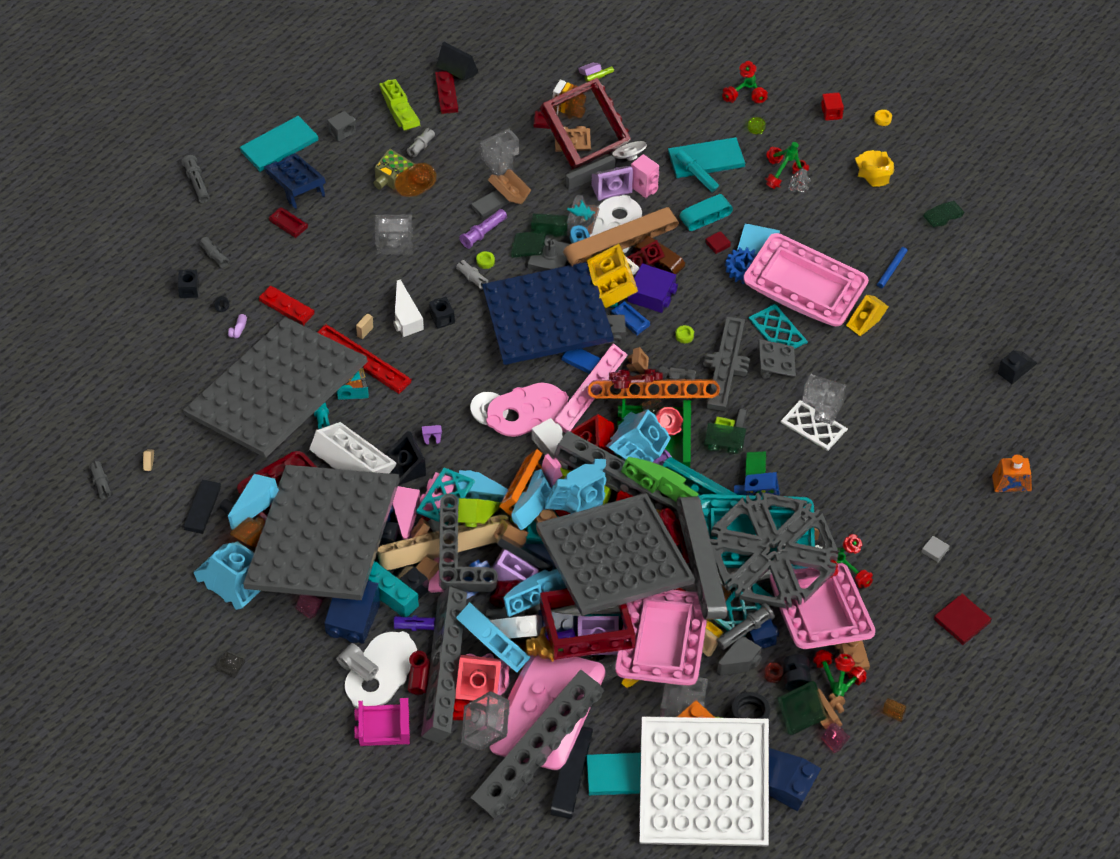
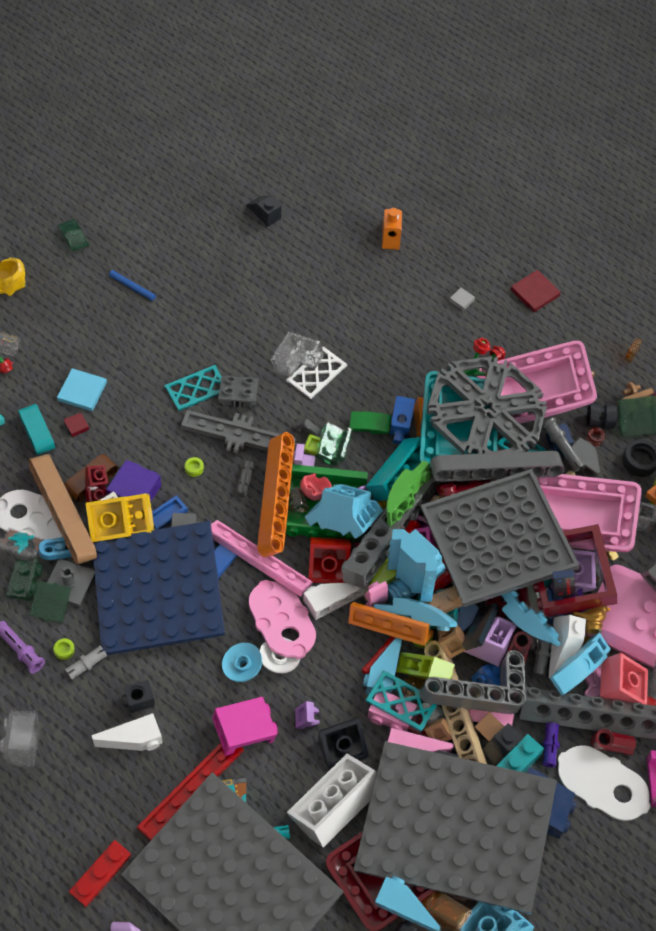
camera: 90 degrees left, 5 degrees up
(354, 659) = (602, 805): light grey piece -> none
(364, 326) = (148, 781): tan tile -> none
(418, 385) = (244, 724): none -> dark pink panel
(479, 381) = (236, 657): none -> medium azure dish
(557, 594) = (563, 583): none -> black tile
(622, 378) = (280, 513): dark red plant -> none
(638, 361) = (233, 510): medium nougat tile -> none
(700, 412) = (301, 459): none -> lavender bracket
(736, 260) = (115, 402): blue gear -> none
(805, 280) = (147, 351): bright pink wedge -> none
(844, 663) = (605, 371): red plant -> none
(867, 314) = (193, 310): yellow slope -> none

